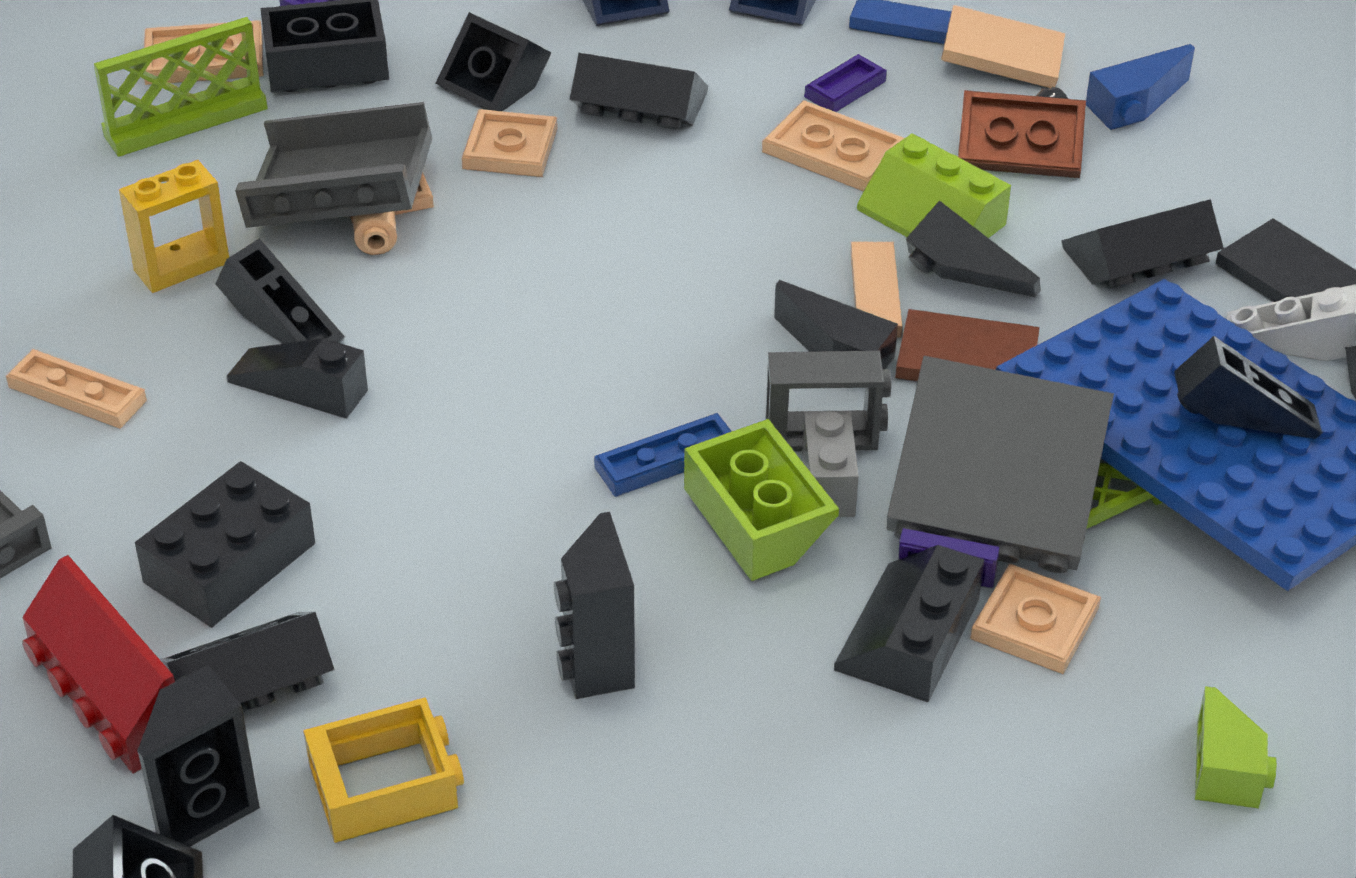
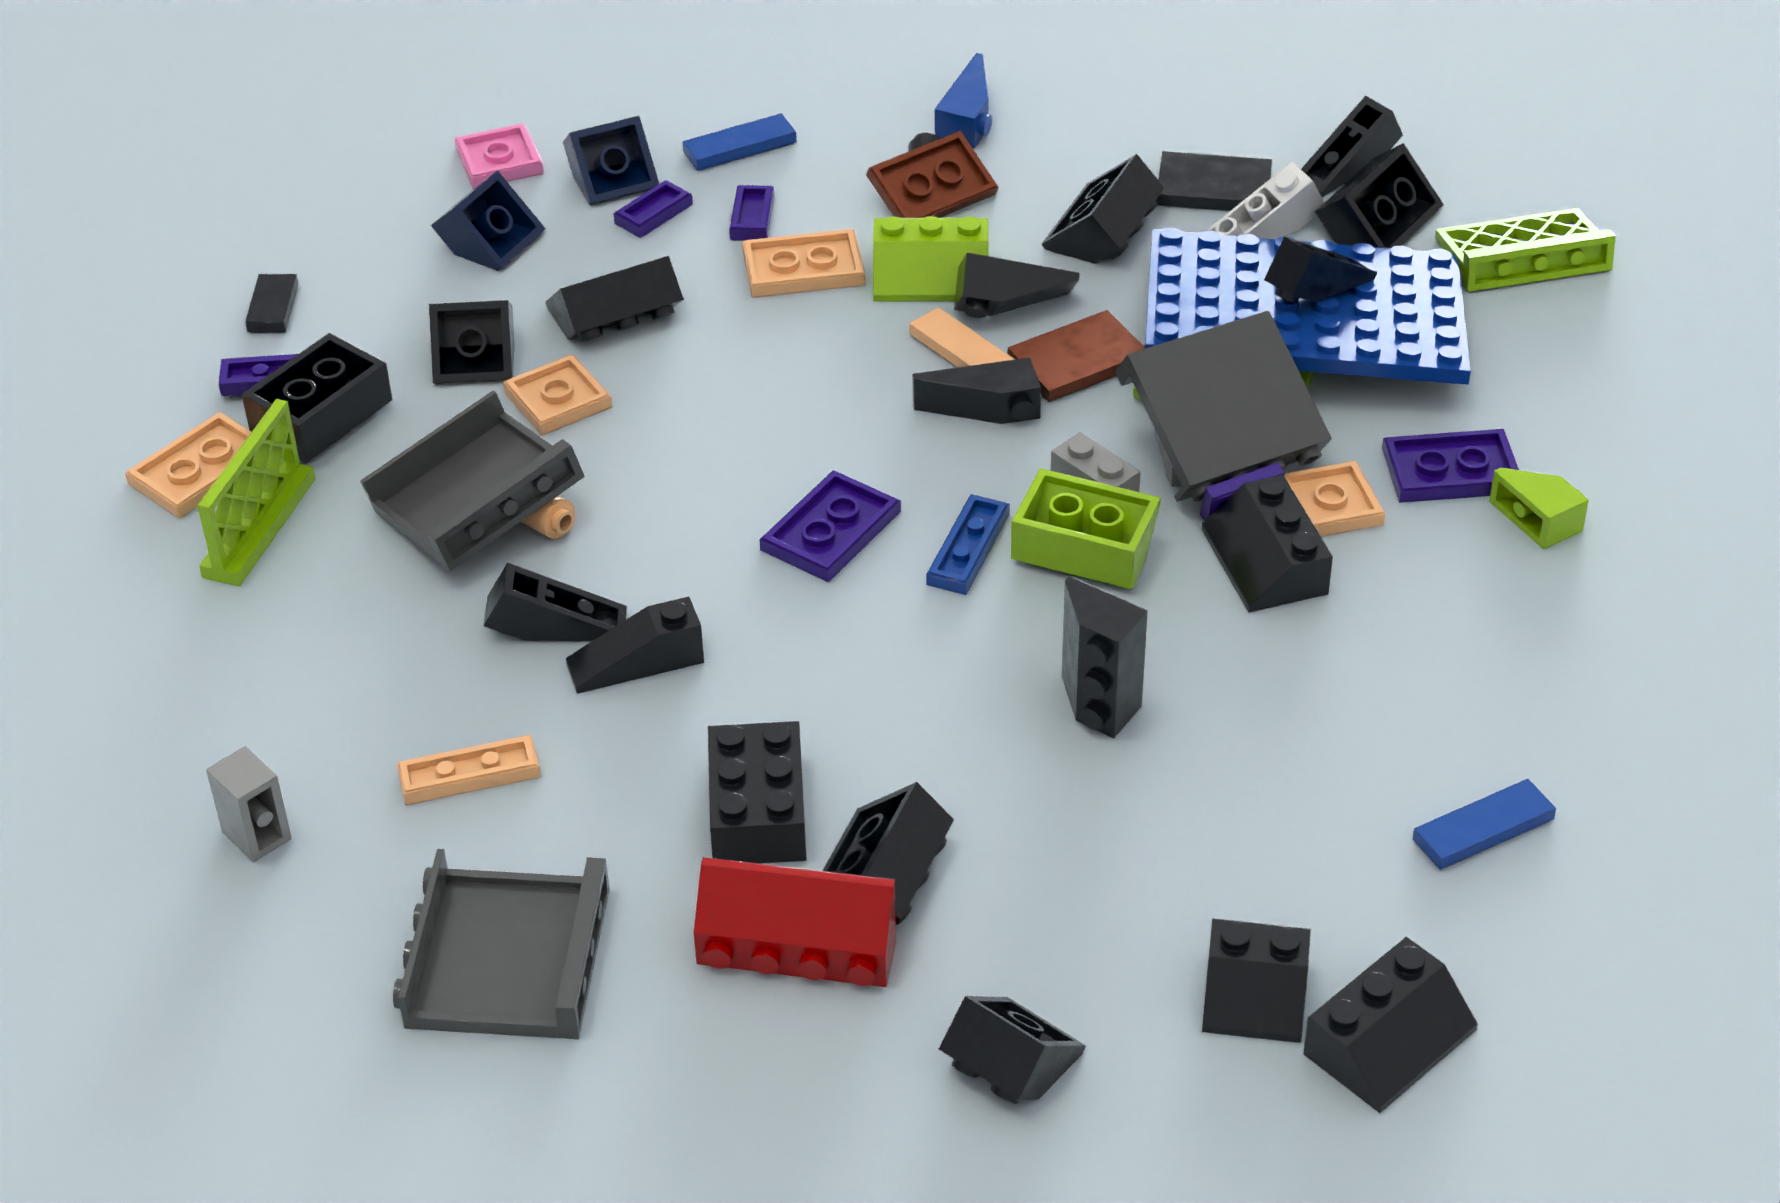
camera: 40 degrees left, 0 degrees up
(187, 255) = (410, 597): yellow window -> none
(197, 759) = (967, 917): black slope -> none
(373, 735) = (1049, 891): yellow window -> none
(578, 370) = (830, 525): none -> dark purple tile
(771, 38) = (653, 208): none -> dark purple tile
(828, 370) = (1020, 431): dark grey window -> none
(1003, 47) = (837, 124): light nougat tile -> none
(1186, 651) = (1446, 463): none -> dark purple tile

